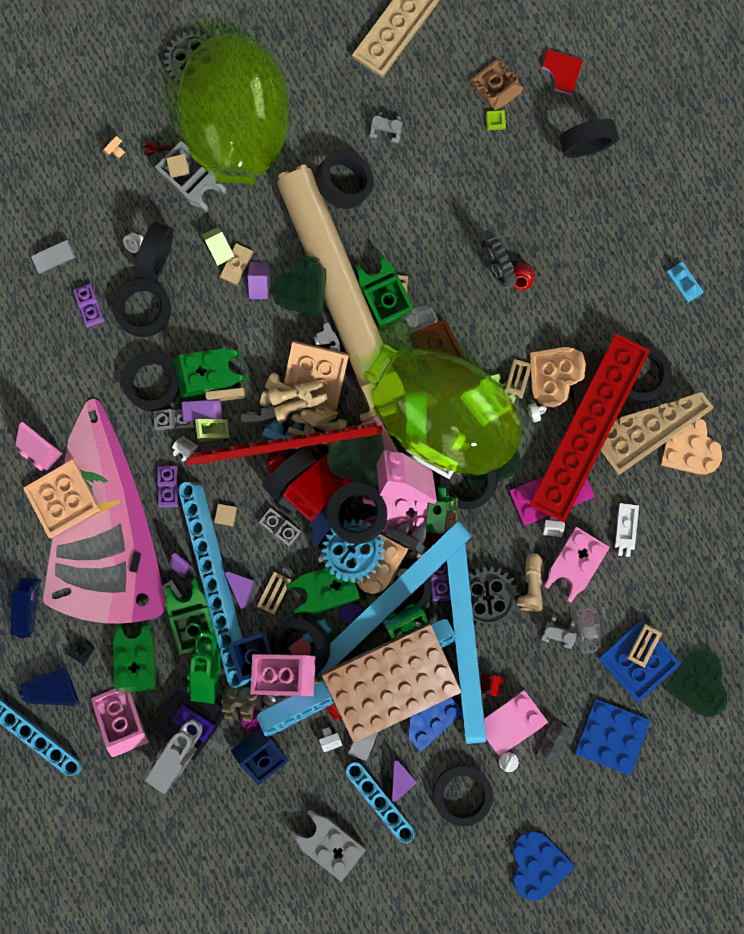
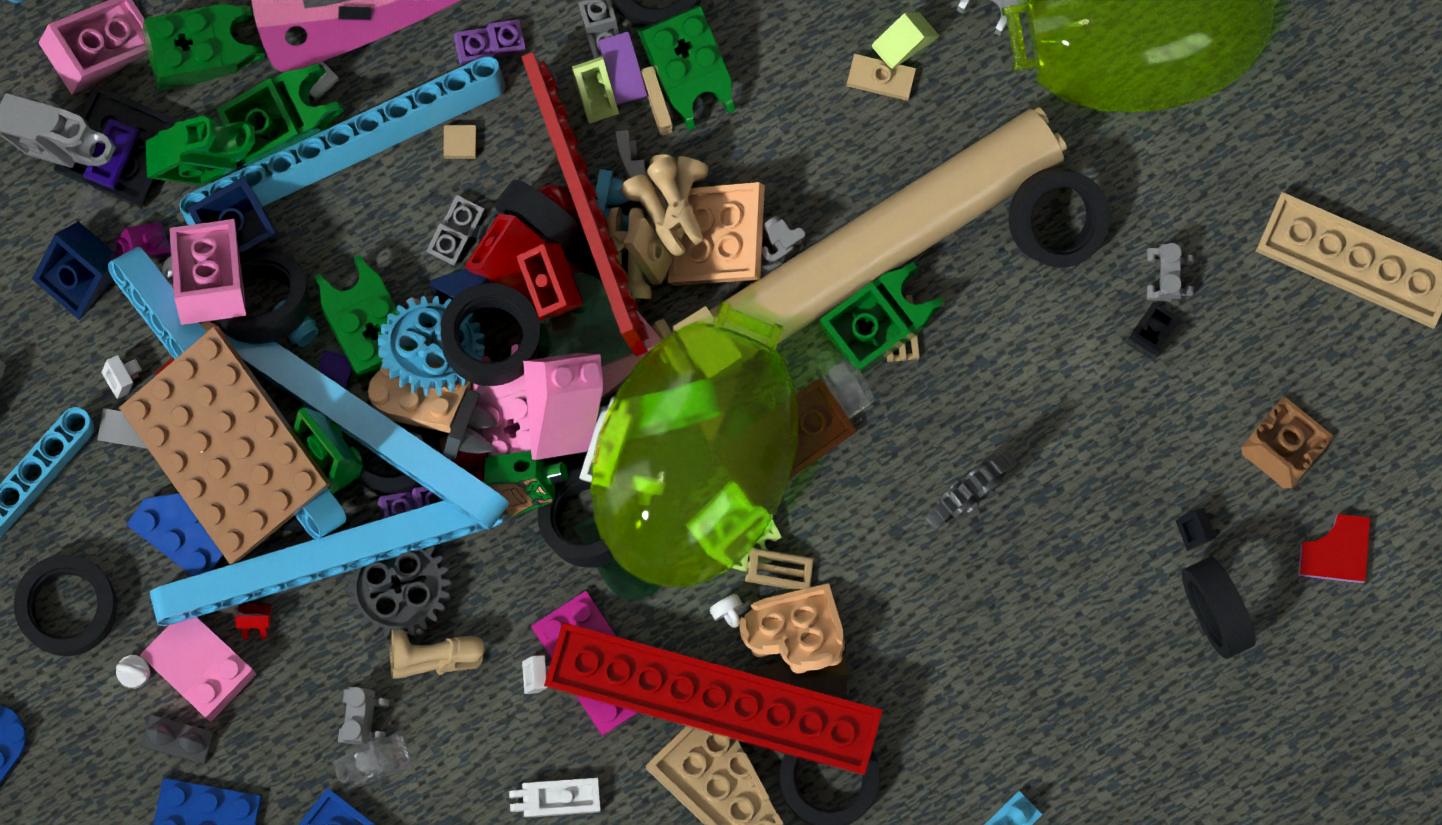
camera: 75 degrees right, 5 degrees down
(180, 565) = (365, 86): medium lavender slope -> none
(185, 447) = (558, 54): white tile -> none
(241, 588) = (343, 187): medium lavender slope -> none
(242, 698) = (163, 214): dark tan plate -> none
(258, 280) = (861, 116): medium lavender slope -> none
(267, 607) = (319, 235): tan tile -> none
(300, 647) = (260, 300): coral tile -> none
(303, 287) = (858, 184): clear green plate -> none
(332, 471) = (549, 280): none -> red brick
(401, 781) = (74, 501): medium lavender slope -> none
(419, 142) = (1153, 331): none -> black slope
(495, 120) = (1224, 453): lime tile -> none
(524, 276) = (956, 543): red head -> none
(537, 143) = (1196, 528): none -> black tile
(571, 567) = (470, 722): bright pink brick -> none

